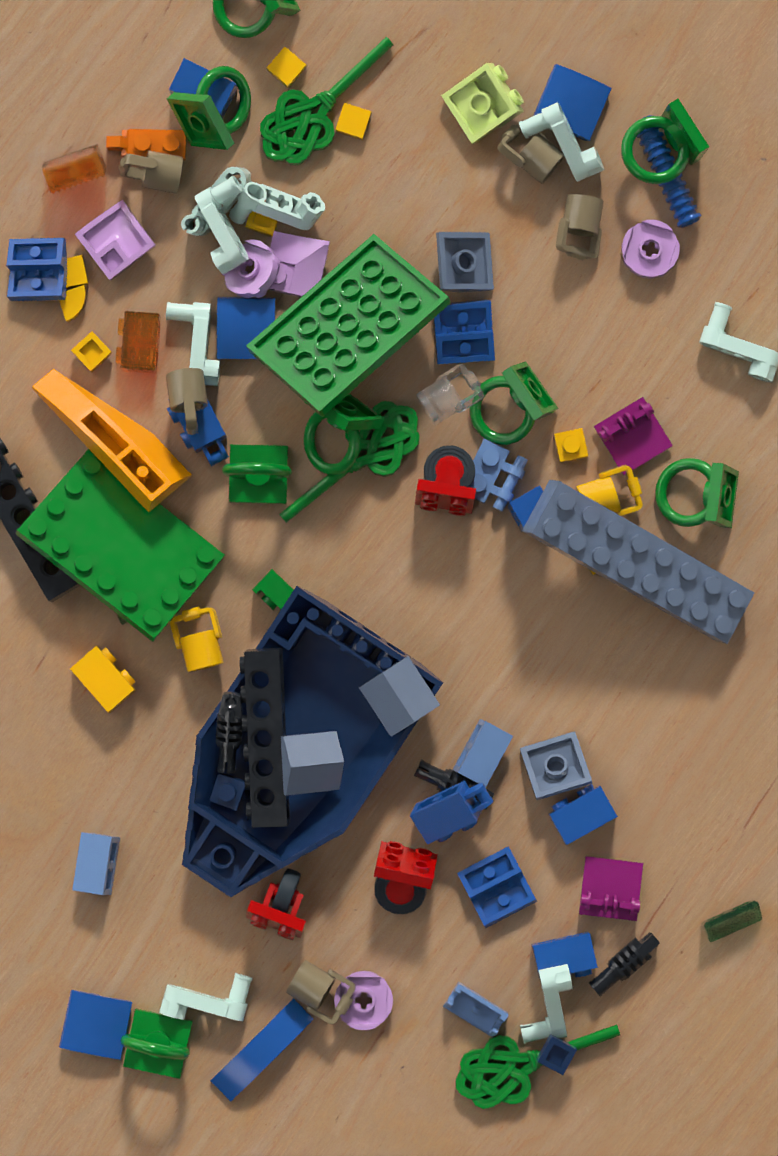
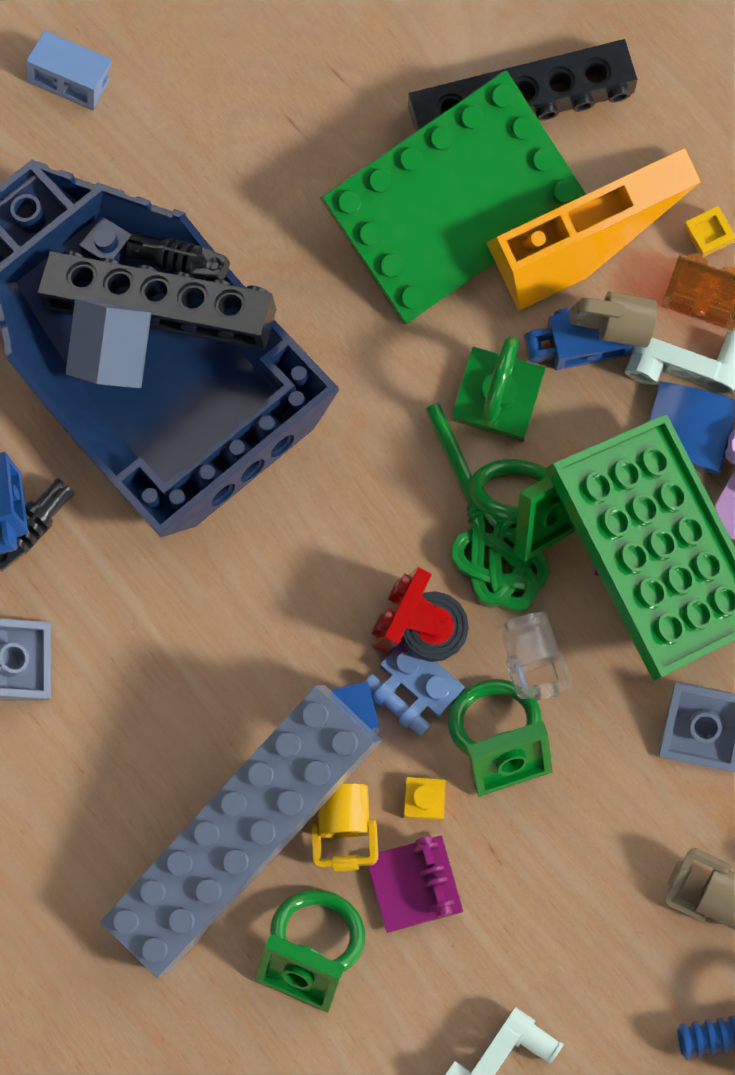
camera: 100 degrees right, 10 degrees down
(103, 678) = (293, 137): yellow brick -> none
(202, 648) = (295, 260): yellow piece -> none
(275, 590) = (346, 369): green brick -> none
(399, 696) = (158, 476): sand blue slope -> none
(465, 333) = (611, 702): blue slope -> none
(482, 752) = (58, 571): medium blue hinge -> none
(636, 258) = (681, 973): lavender plate -> none

